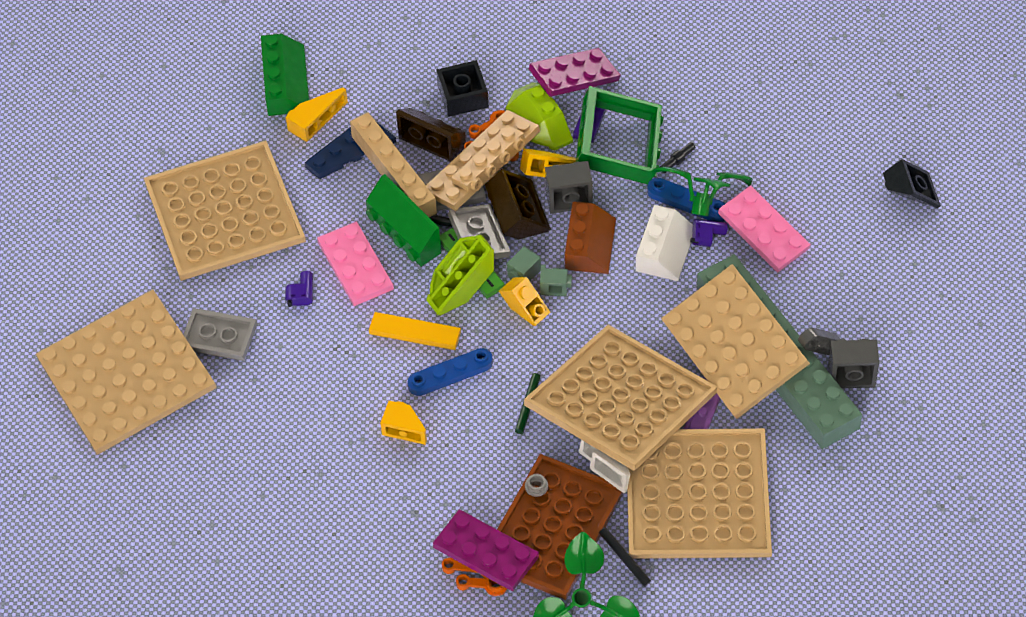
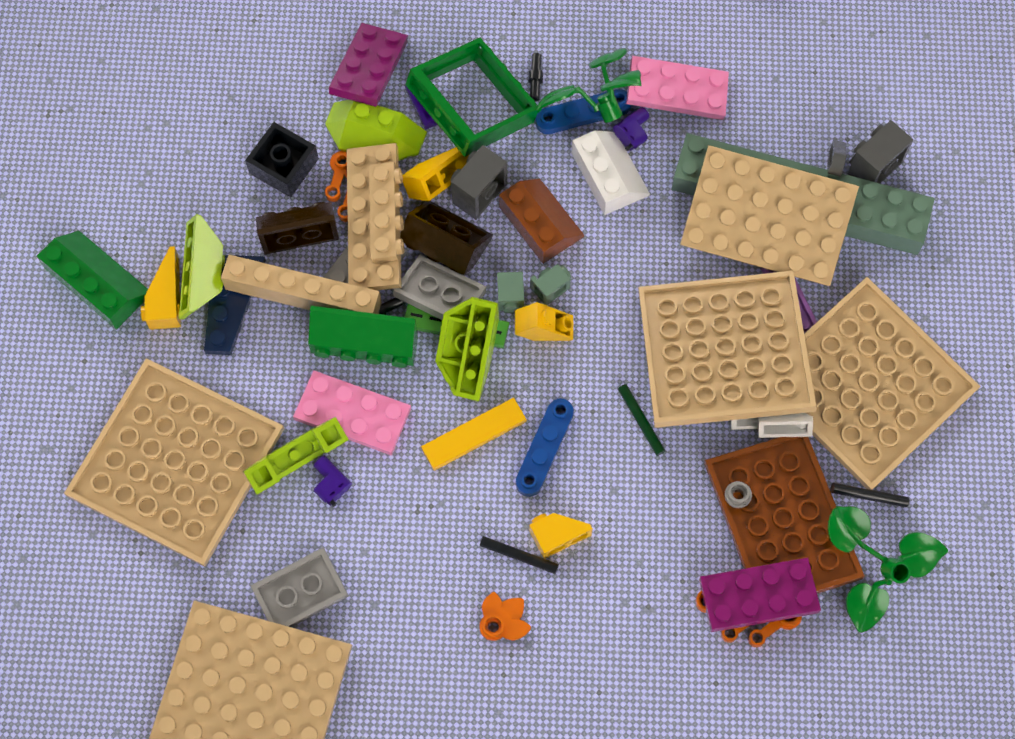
camera: 45 degrees left, 15 degrees up
(293, 258) = (295, 454): none -> lime slope
(323, 445) = (506, 616): none -> orange plate
(350, 107) = (201, 266): none -> lime wedge
(368, 418) = (519, 555): none -> black bar

